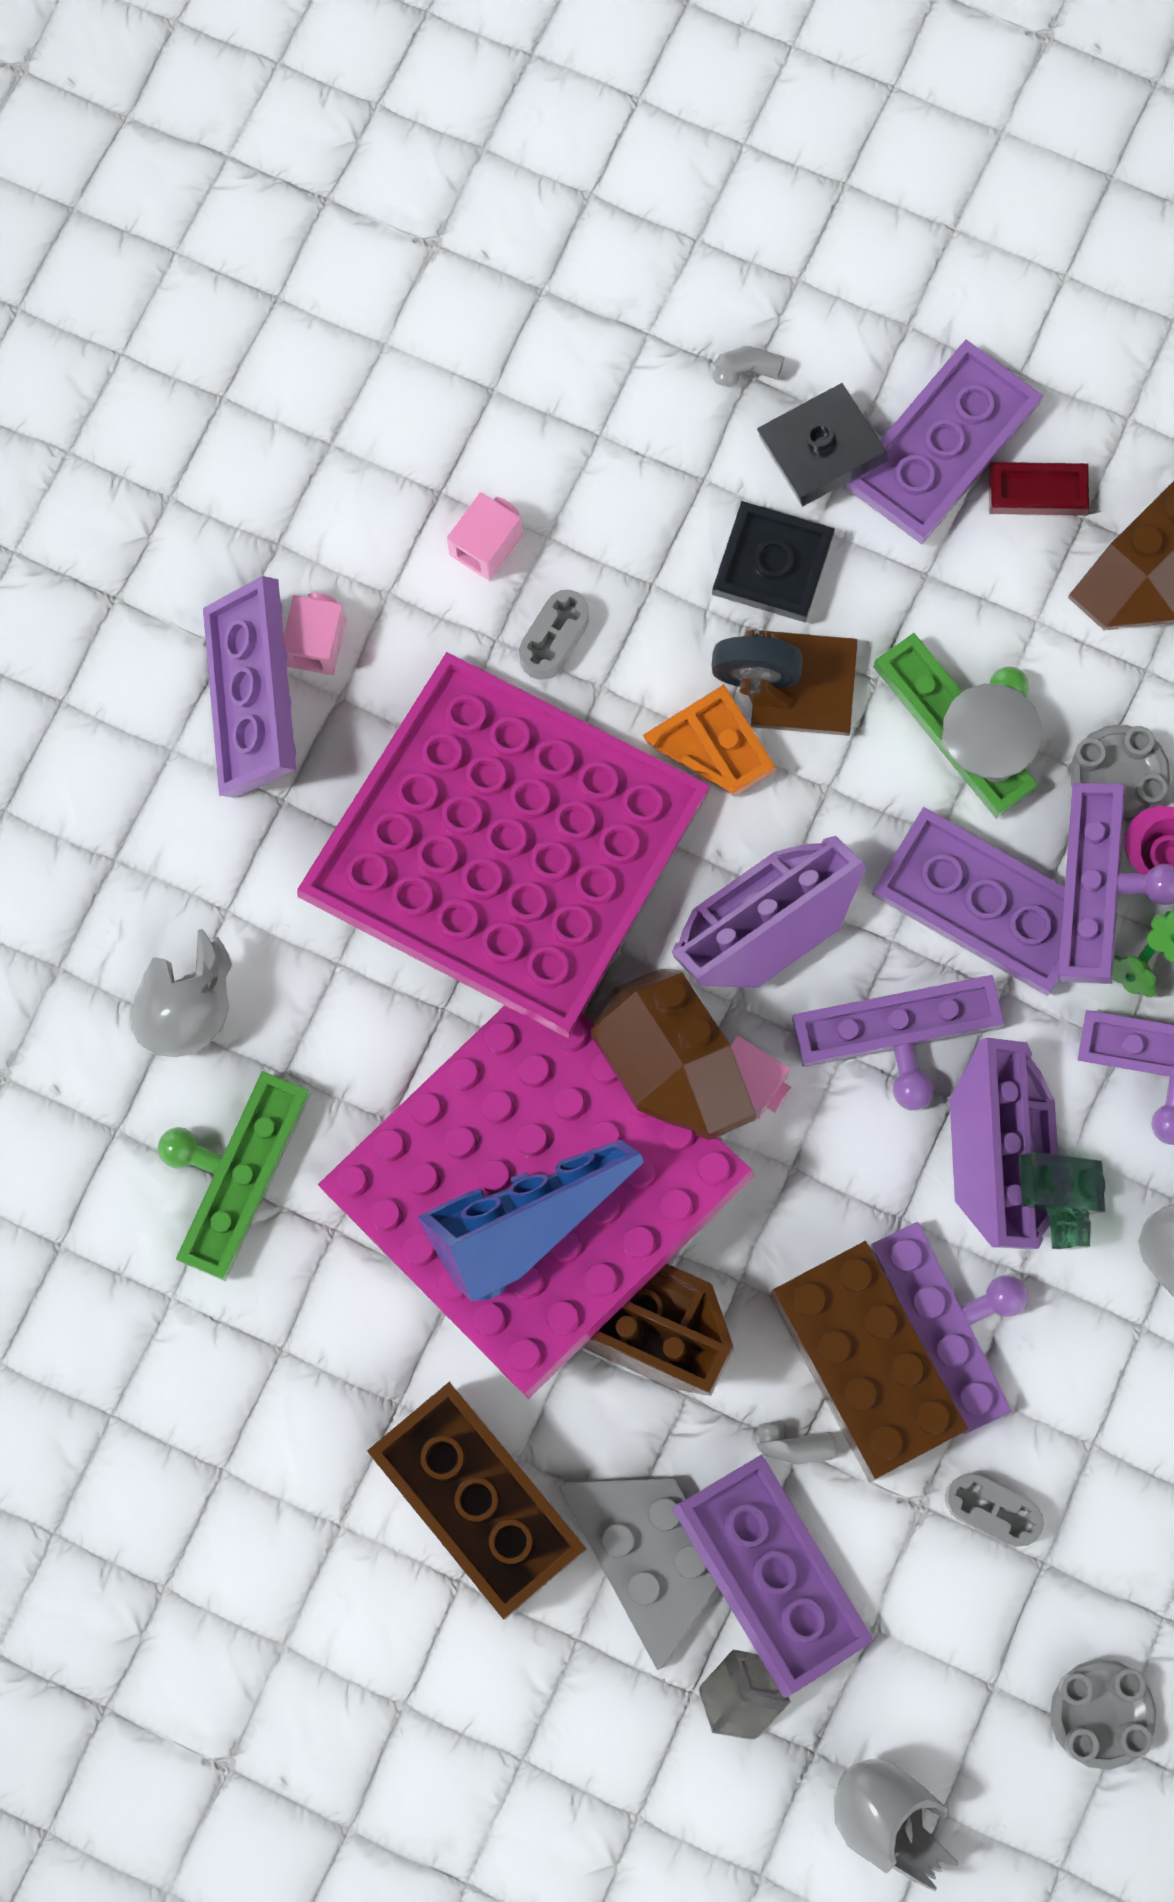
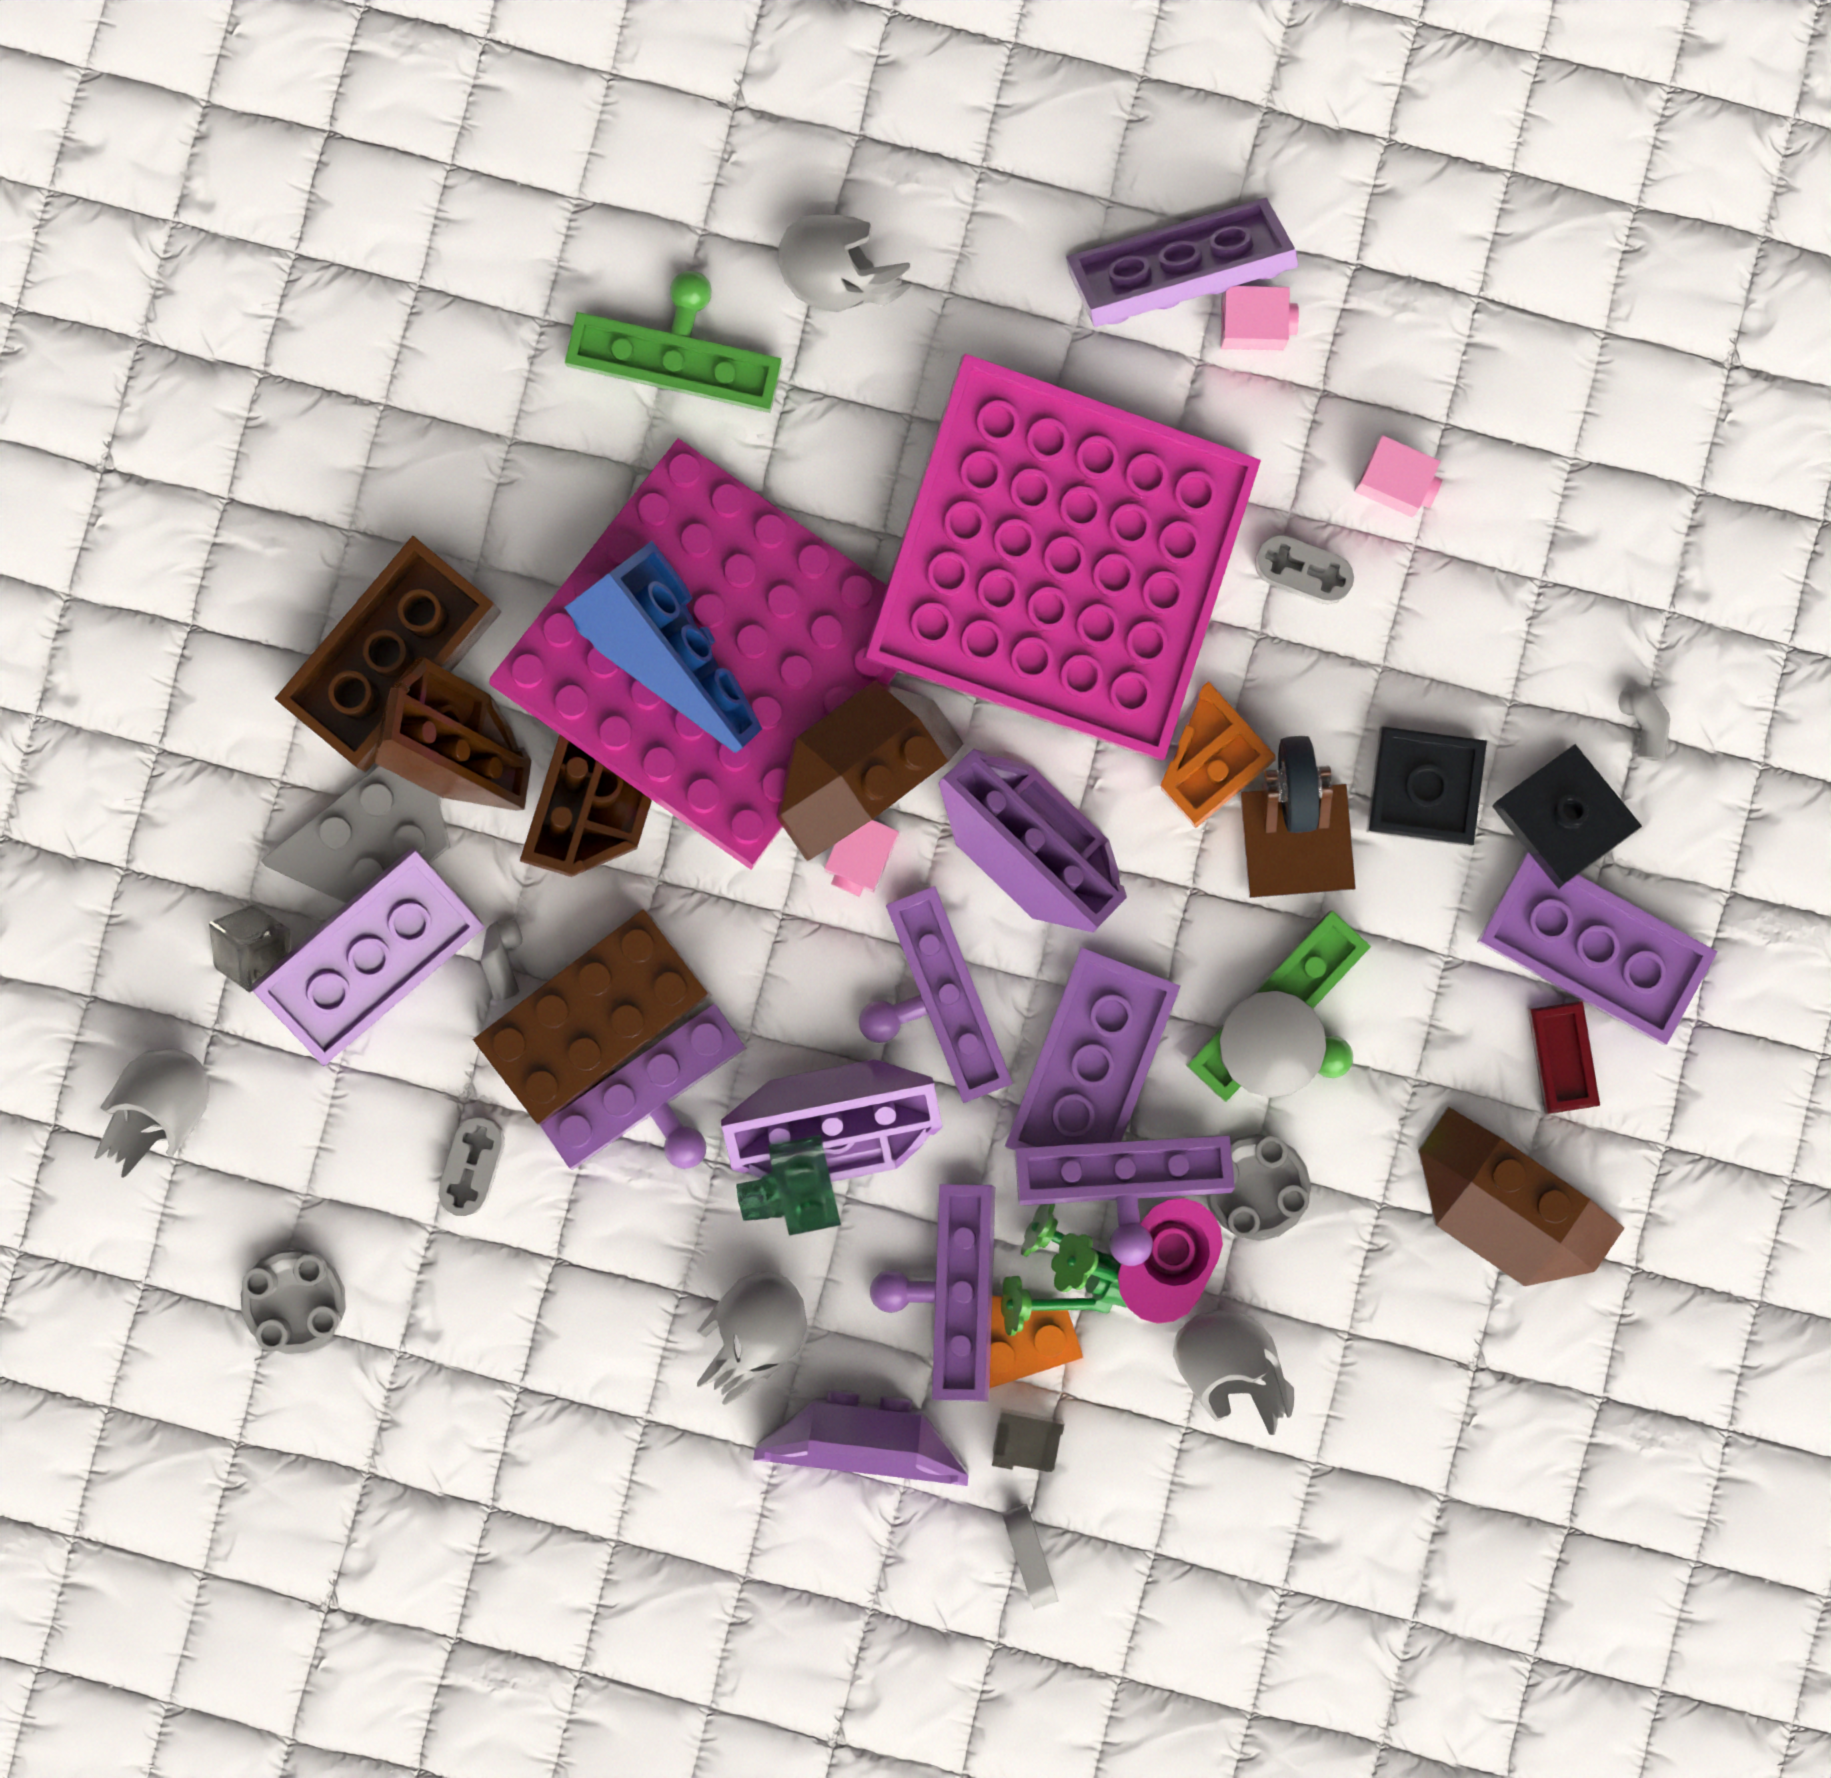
camera: 80 degrees right, 10 degrees up
(575, 1450) = (451, 740): none -> reddish brown wedge

